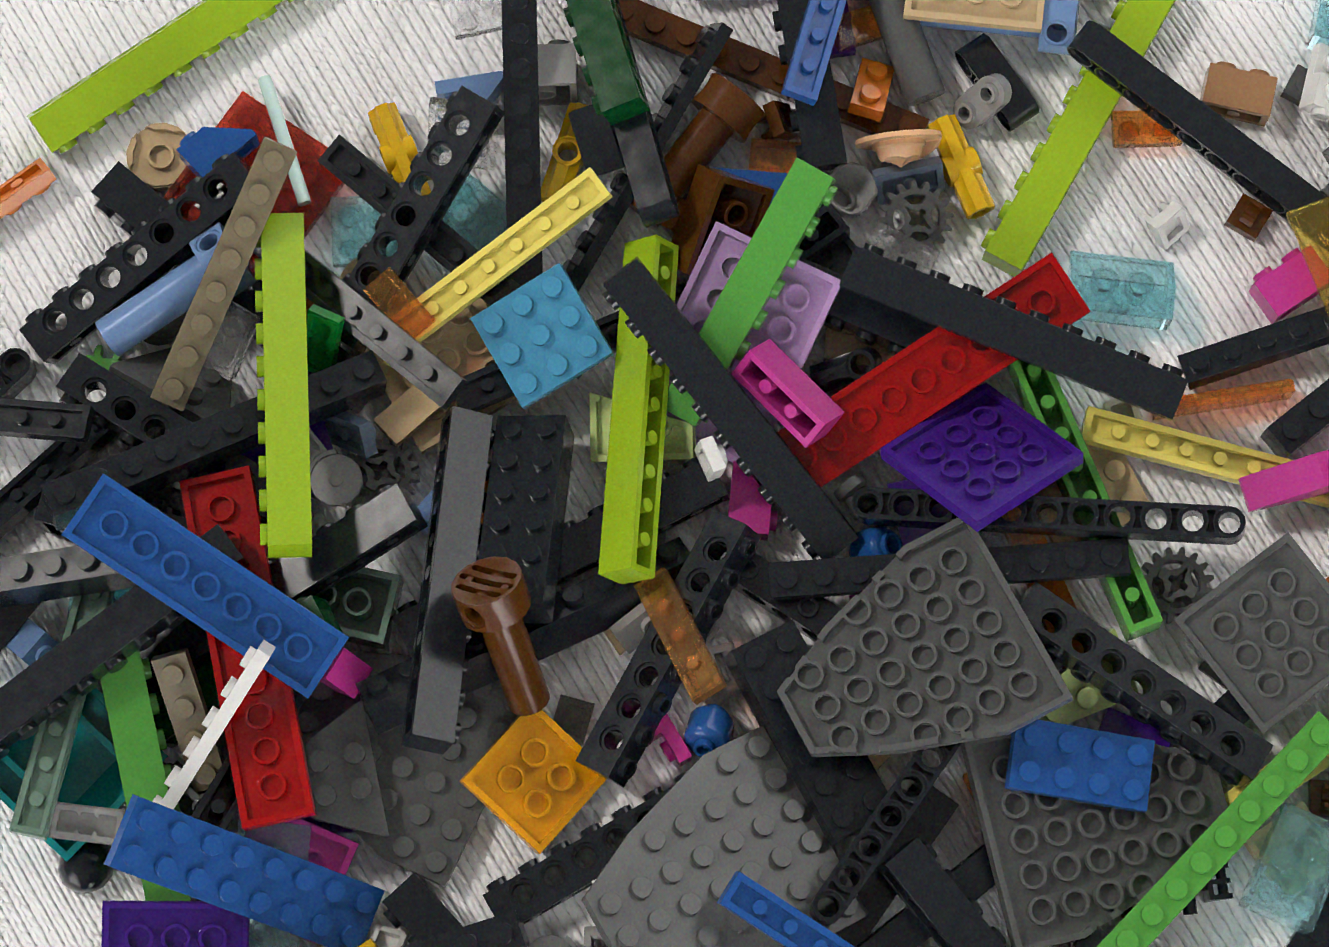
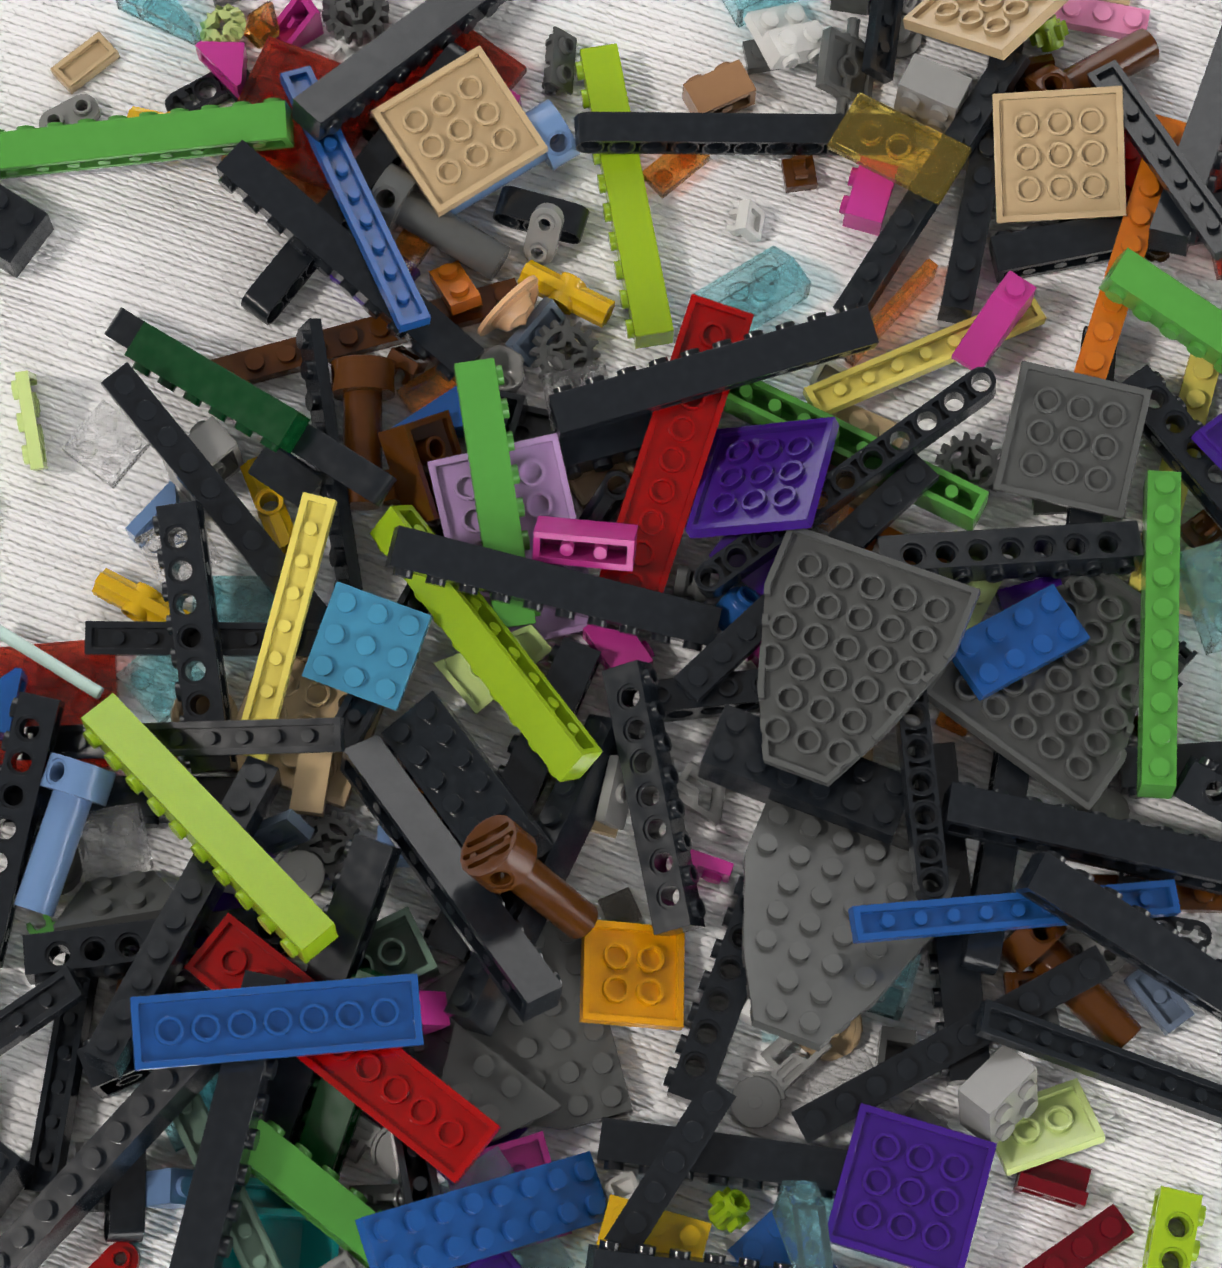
camera: 40 degrees left, 5 degrees down
(186, 709) = (338, 1140): dark tan plate -> none
(215, 723) = (370, 1118): white plate -> none
(223, 273) = (90, 785): dark tan plate -> none
(323, 338) = (205, 770): green plate -> none
(399, 303) = (234, 703): clear orange plate -> none
(680, 636) = (658, 779): clear orange tile -> none
(708, 729) = (728, 836): blue head -> none
(711, 458) = (568, 634): white plate -> none

